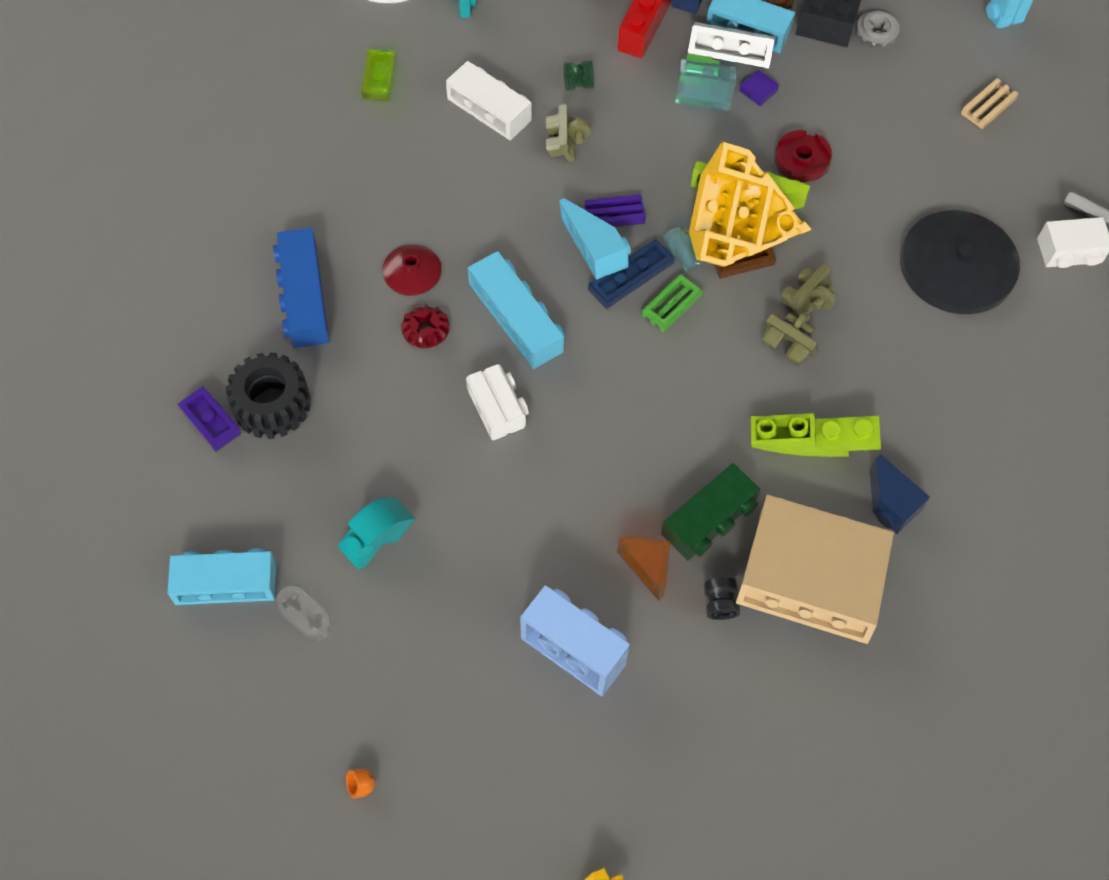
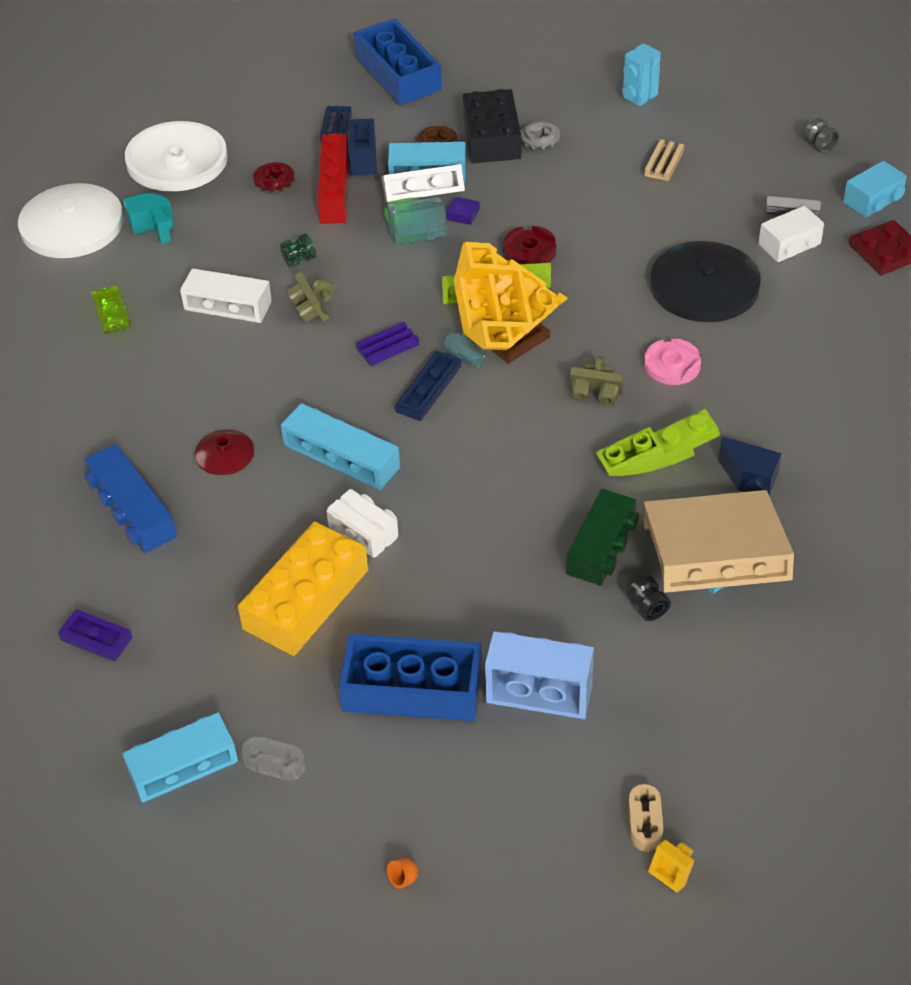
camera: 20 degrees left, 15 degrees down
(264, 374) = (144, 573): black tyre -> none
(374, 525) = (304, 659): teal brick -> none
(410, 448) = (303, 588): none -> yellow brick
(428, 336) = (270, 496): dark red gear -> none
(458, 589) = (411, 677): none -> blue brick
(596, 240) = (382, 366): medium azure slope -> none
(596, 824) = (652, 817): none -> tan beam
(647, 560) = (567, 594): clear orange slope -> none
(665, 323) = (471, 410): bright green tile -> none
(814, 293) = (593, 342): olive hips -> none
(880, 342) = (672, 362): none -> bright pink tile

